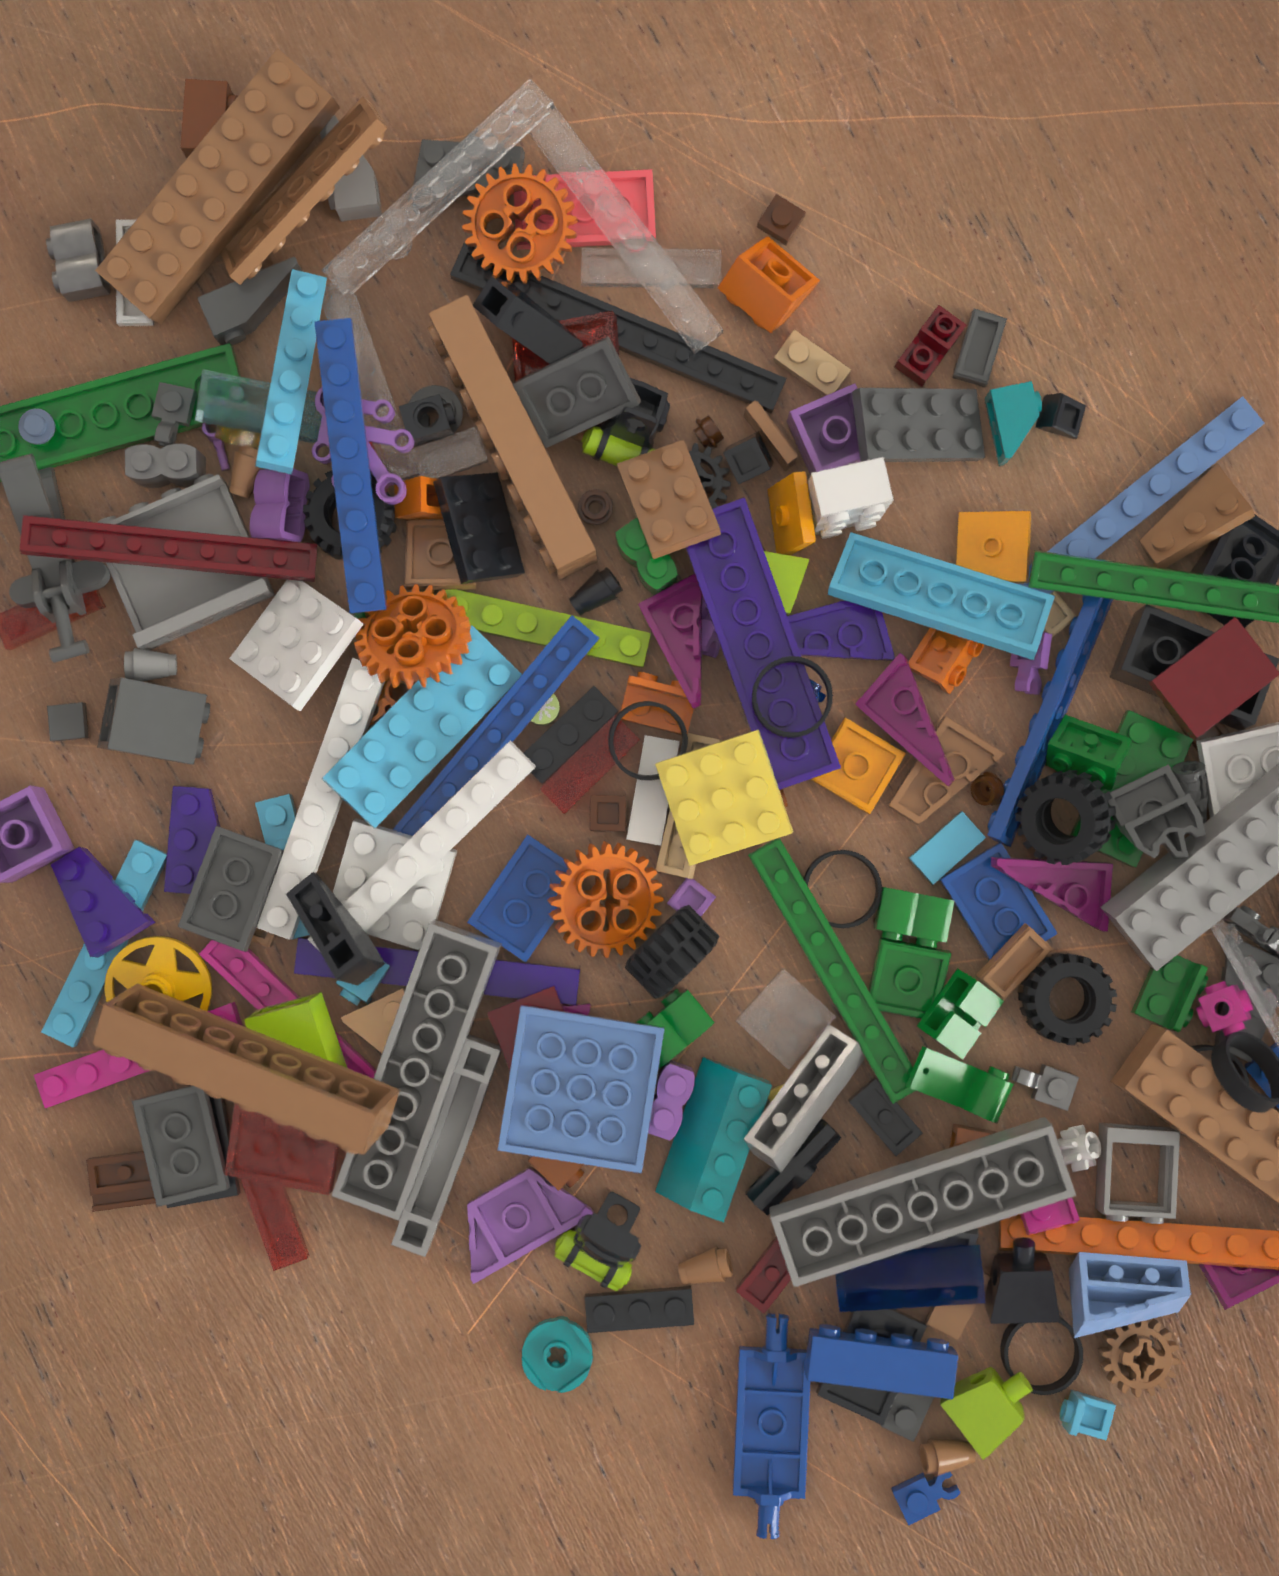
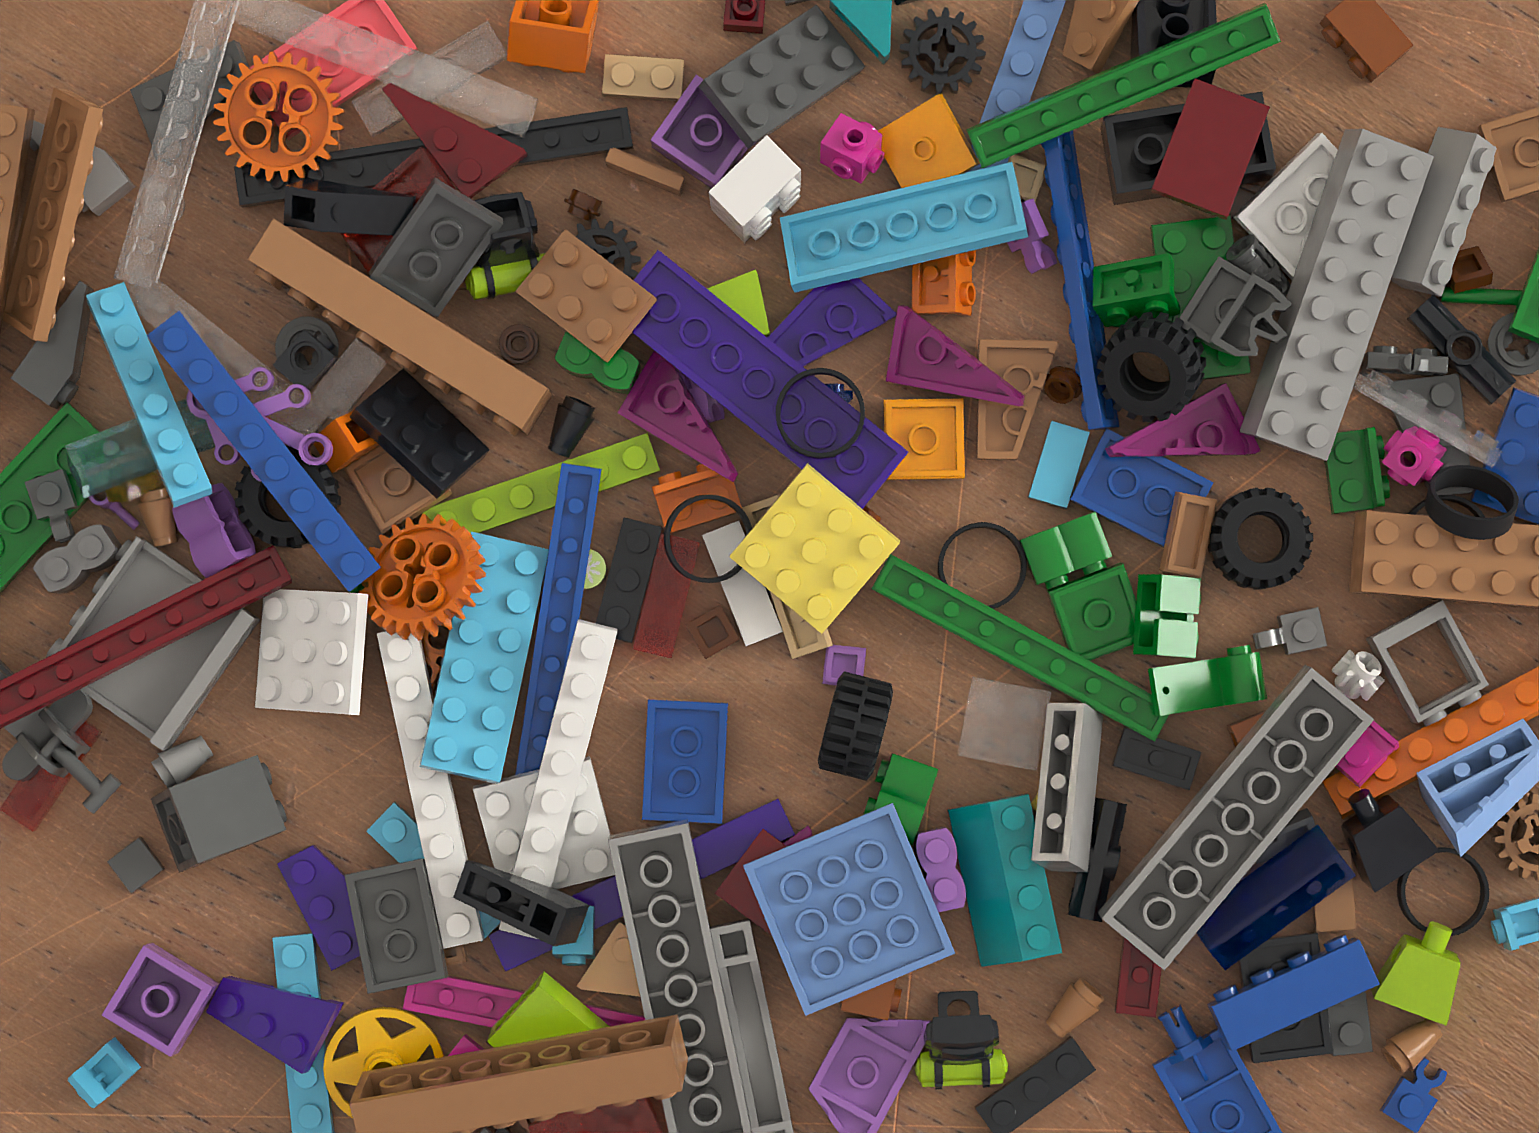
camera: 25 degrees left, 0 degrees up
(636, 896) = (789, 695): orange gear -> none
(643, 334) = (462, 149): none -> dark red wing
(748, 457) = (637, 207): black brick -> none
(791, 514) = (712, 237): light orange plate -> none
(937, 513) = (852, 149): none -> dark pink brick
(1039, 473) = (925, 51): none -> black gear

